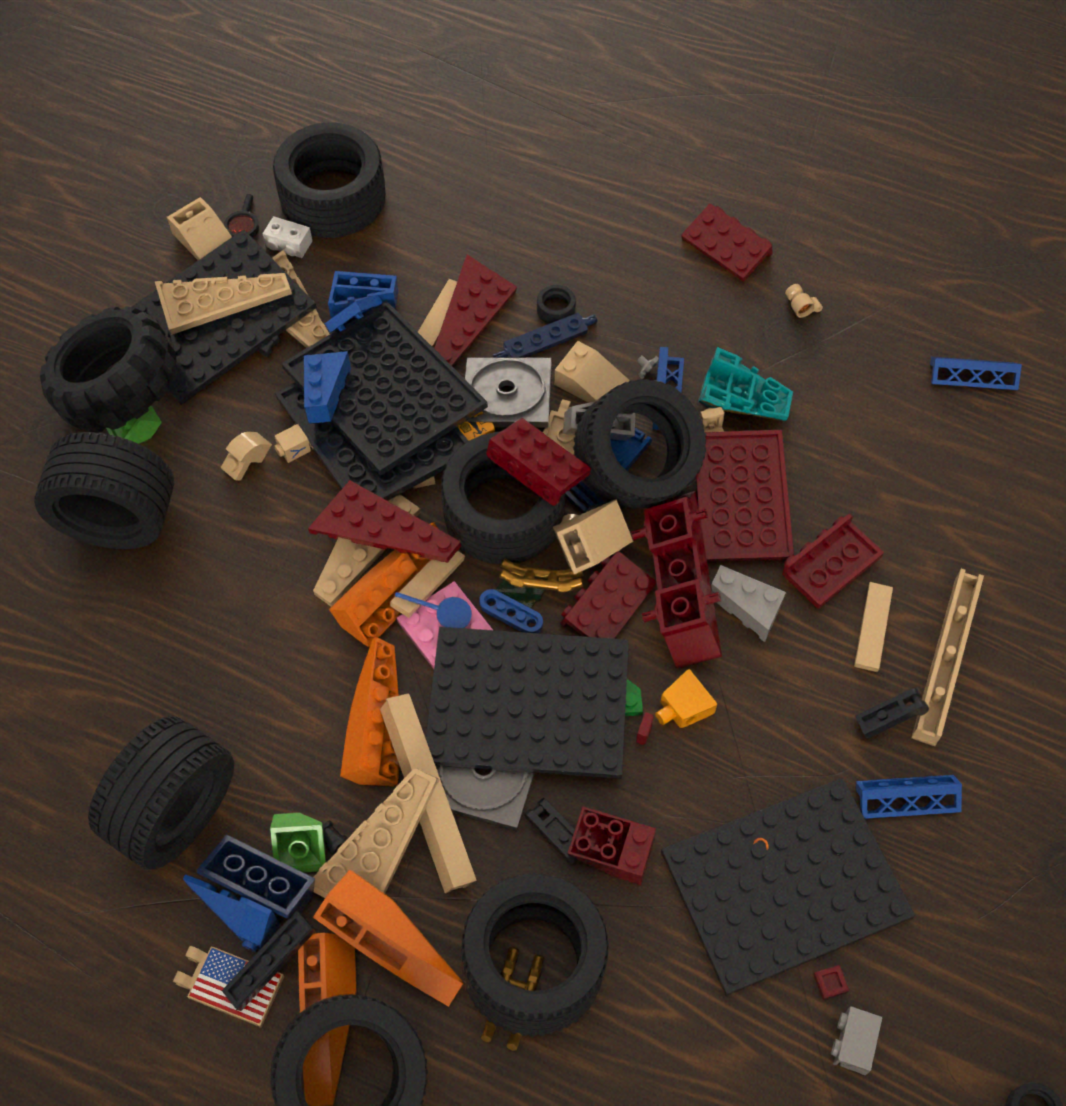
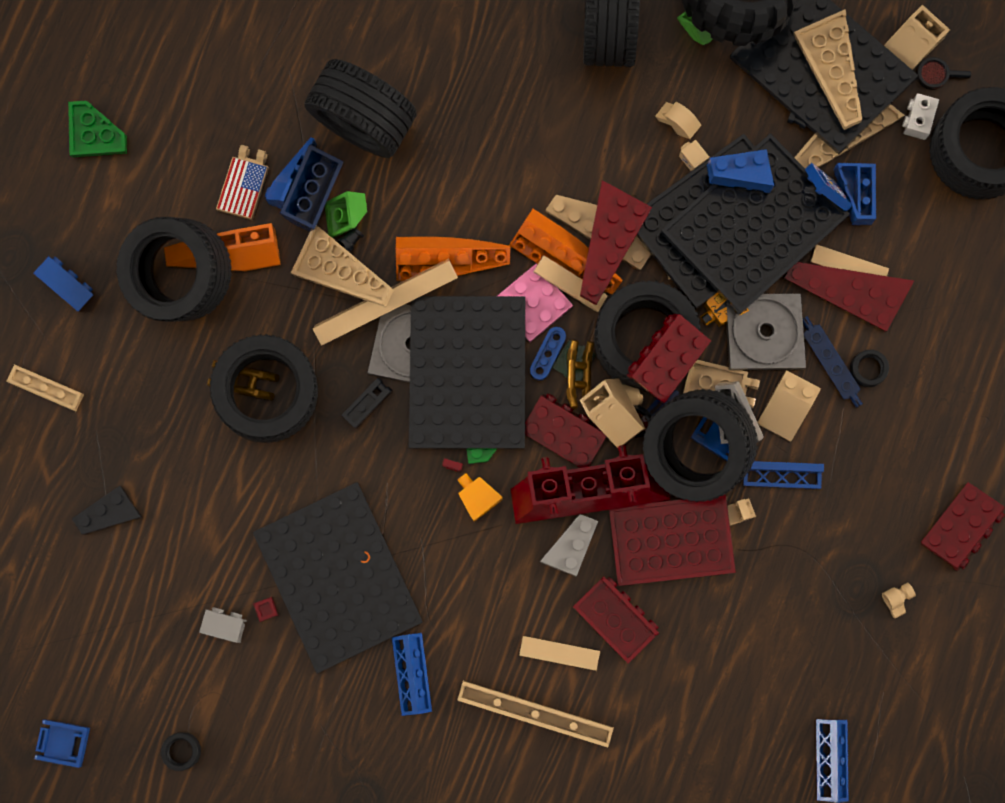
camera: 95 degrees right, 20 degrees up
(268, 960) = (254, 206): black tile -> none
(387, 936) = (277, 283): orange wedge -> none
(450, 613) = (539, 305): blue piece -> none
(612, 844) = (355, 443): dark red slope -> none
(646, 365) = (805, 453): light grey plant -> none
(742, 390) = (783, 540): teal wedge -> none
(892, 712) = (476, 661): black plate -> none

